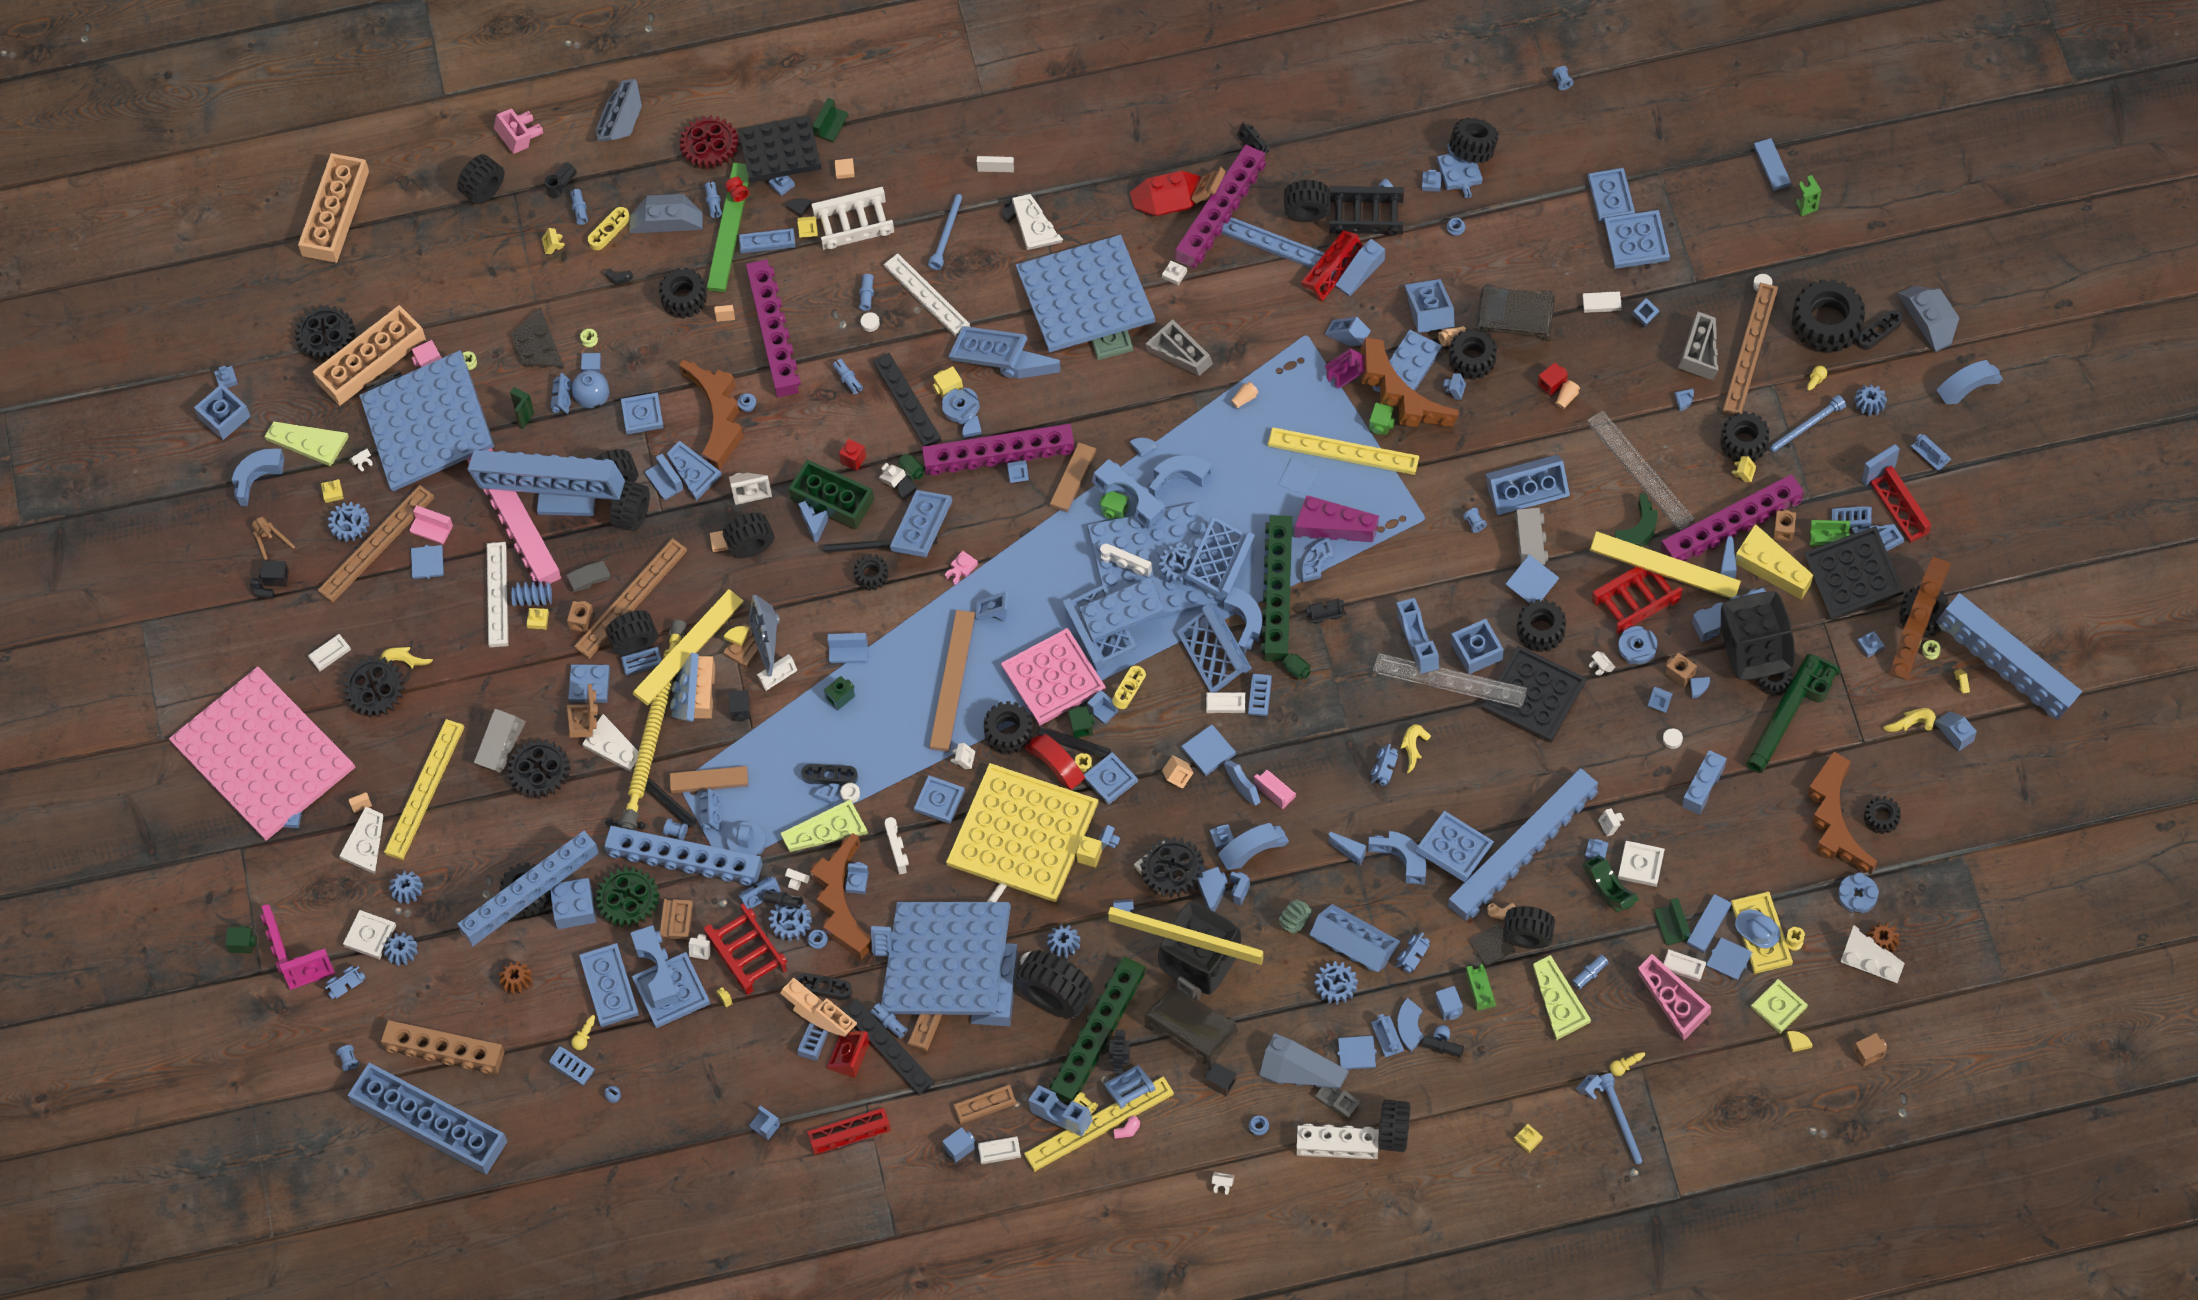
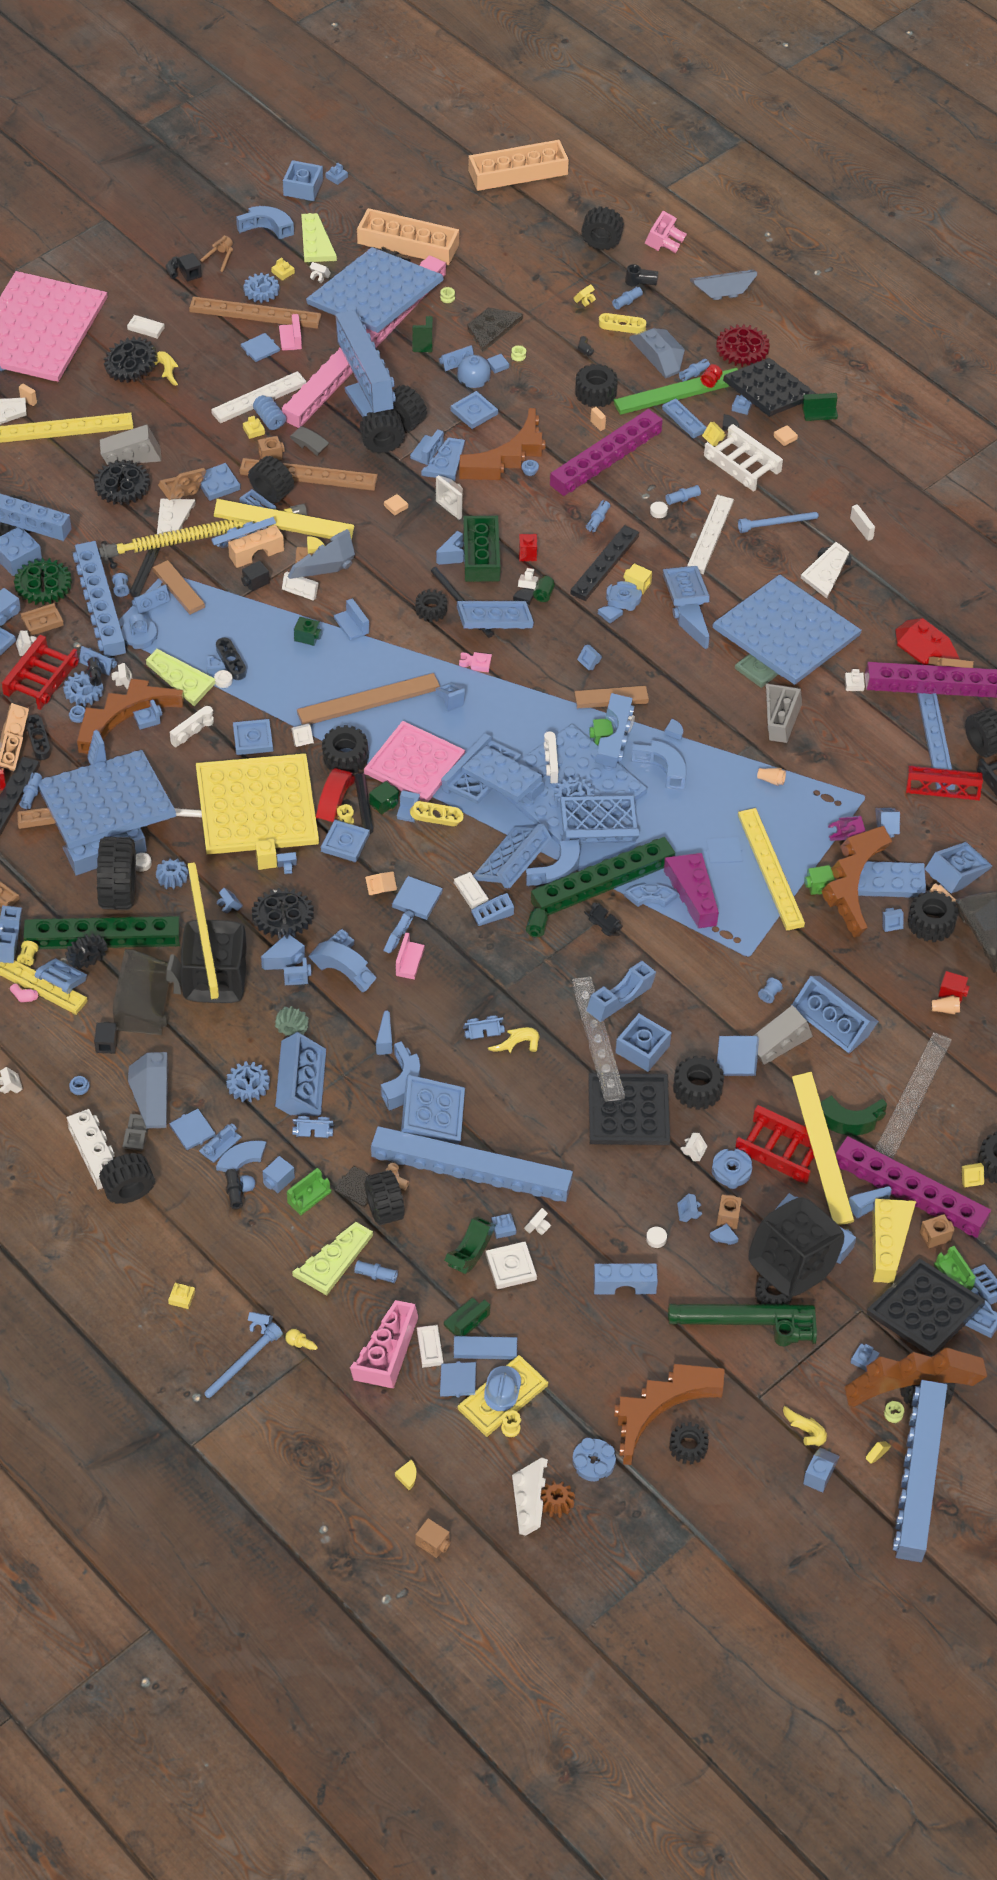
camera: 55 degrees right, 10 degrees down
(341, 329) = (412, 205): black gear -> none
(748, 535) = (405, 511): black tyre -> none
(1004, 442) = (600, 636): magenta brick -> none
(1361, 267) = (960, 803): medium blue slope -> none
(1779, 1006) = (435, 1443): yellowish green tile -> none

